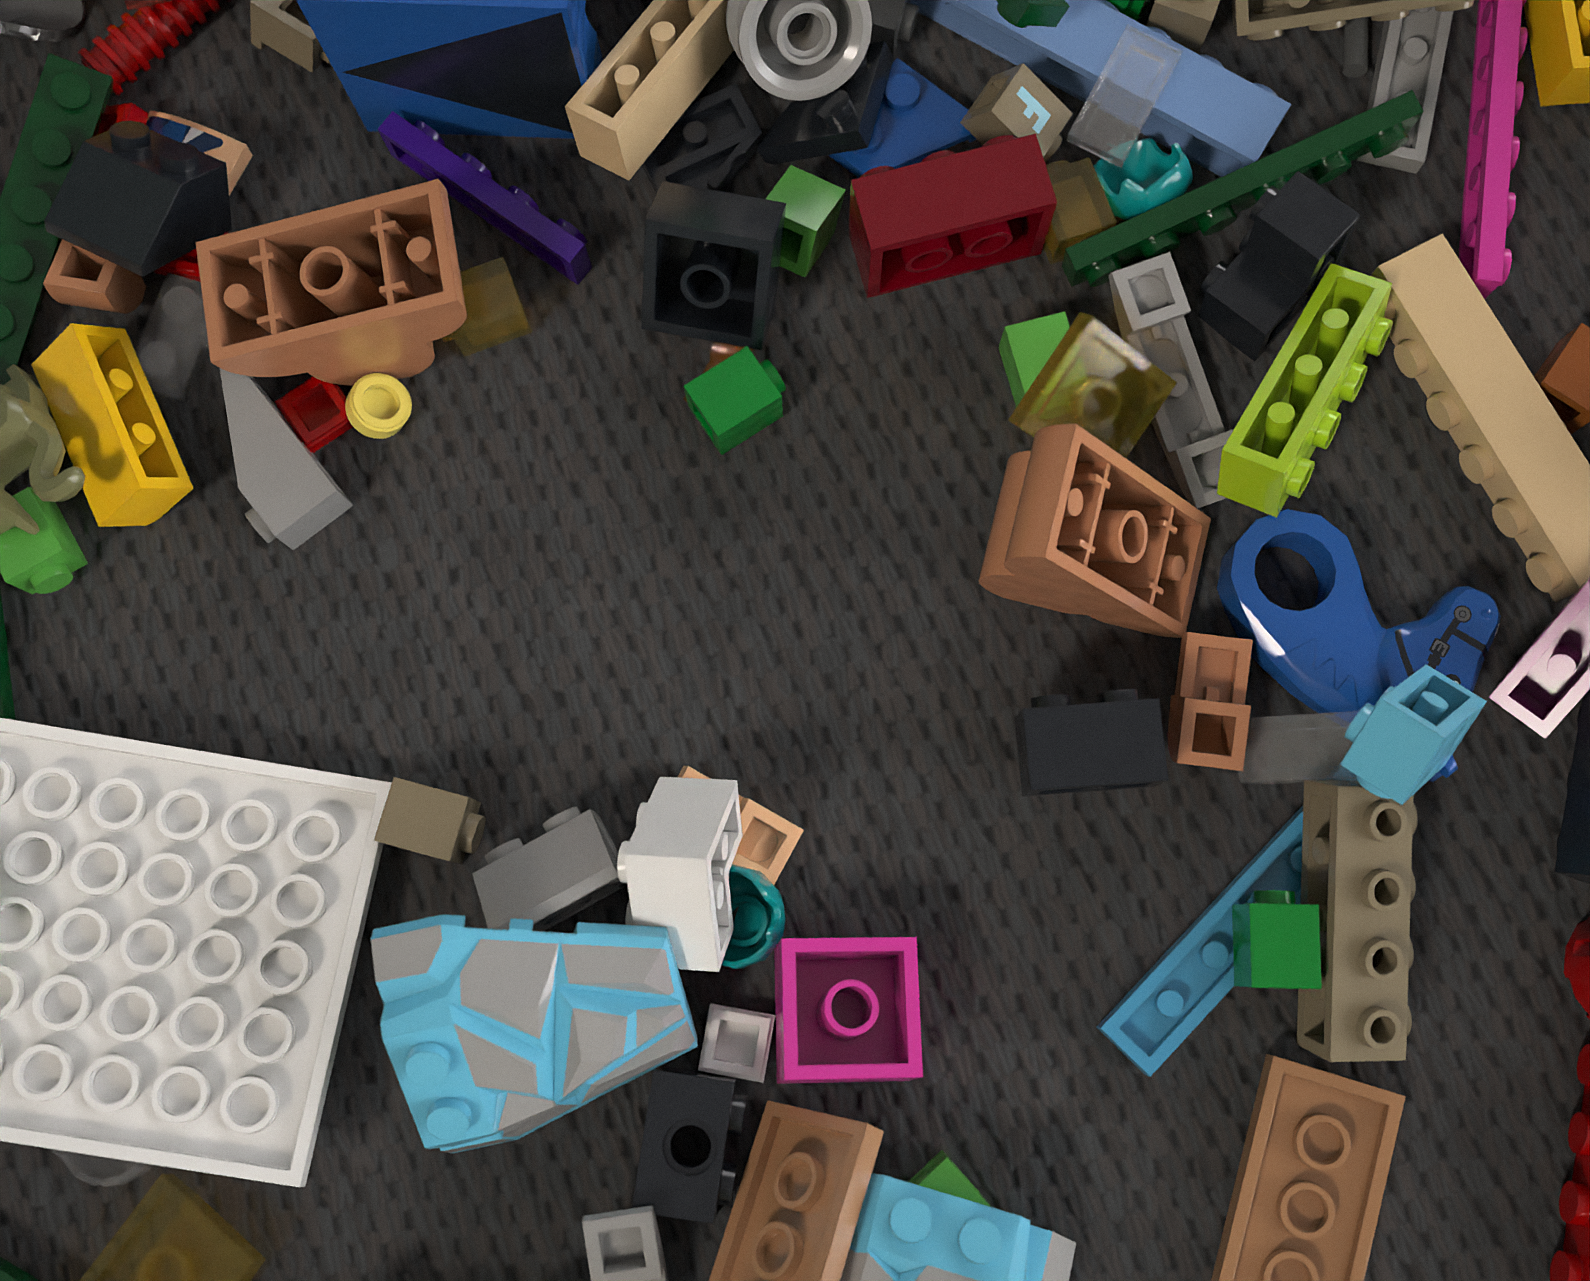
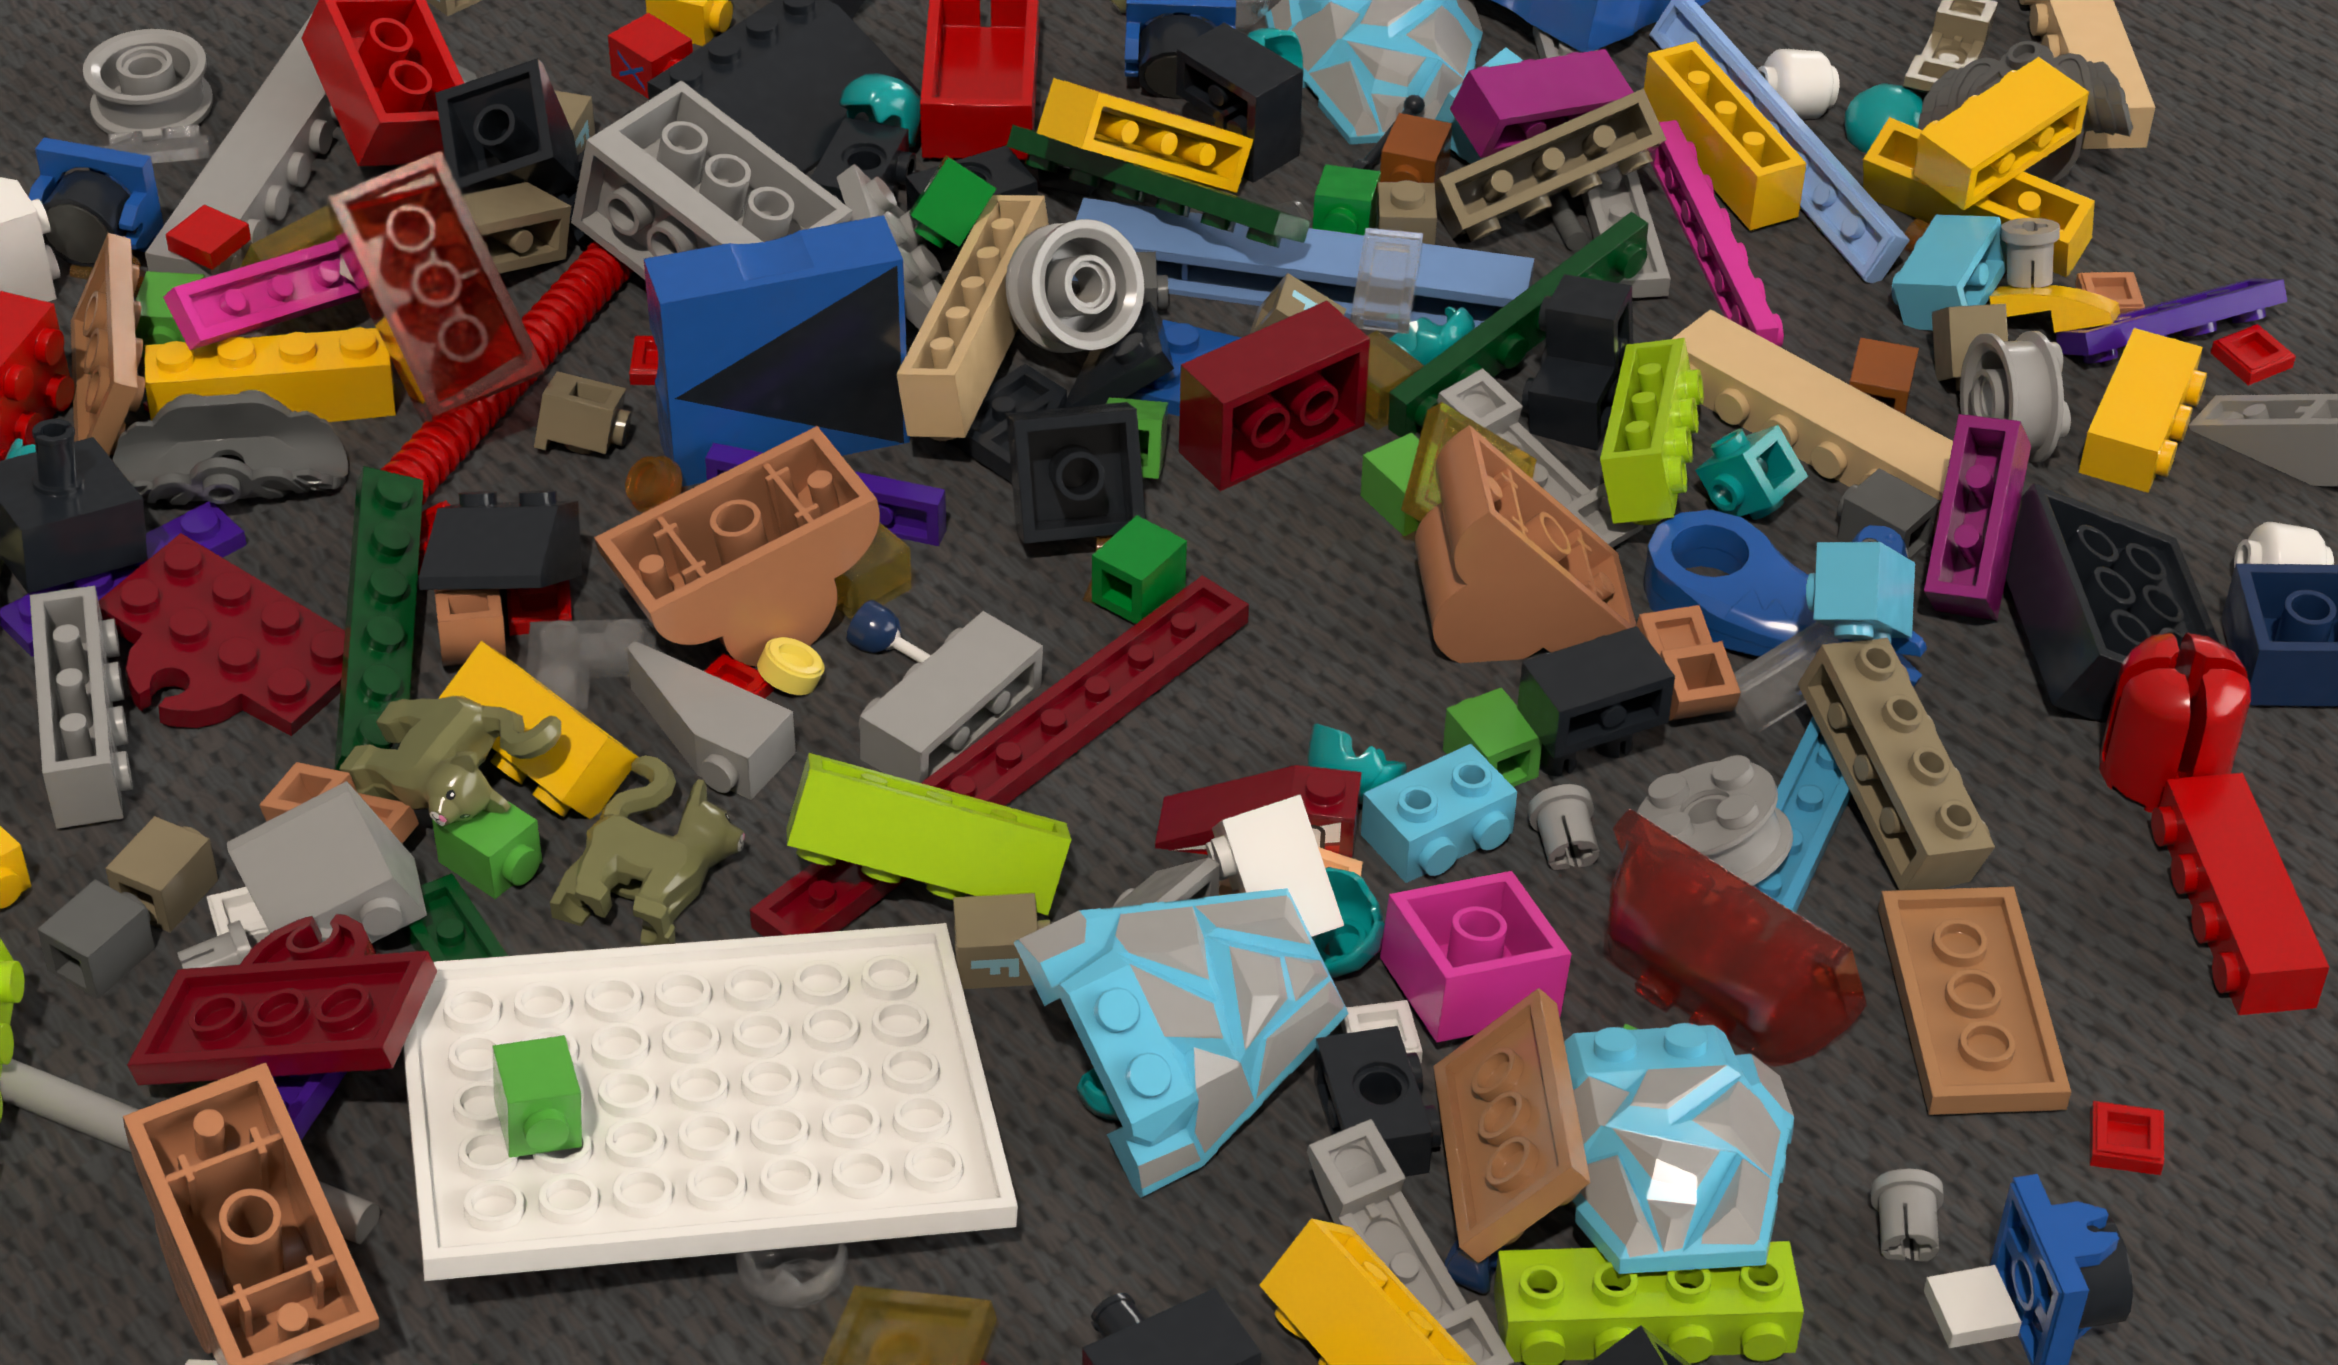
camera: 25 degrees left, 35 degrees down
(154, 615) = (646, 865): none -> olive animal
(337, 131) = (653, 482): none -> clear orange plate
(386, 702) = (924, 834): none -> lime brick
(476, 385) = (878, 629): none -> dark blue hinge
(498, 505) = (950, 699): none -> light grey brick
(523, 595) = (1029, 743): none -> dark red plate
(729, 748) = (1327, 794): none -> dark red slope
(829, 738) = (1334, 750): none -> teal hair
(895, 806) = (1439, 813): none -> medium azure brick
(980, 728) = (1497, 732): none -> bright green brick
(1008, 862) = (1563, 818): none -> light grey bush
(1080, 1108) = (1726, 949): none -> clear red windscreen
(1132, 893) = (1725, 814): none -> light grey wheel
(1276, 942) = (1836, 795): green brick -> none
(1386, 468) = (1751, 472): none -> teal brick
(1501, 561) = (1889, 503): none -> dark grey brick

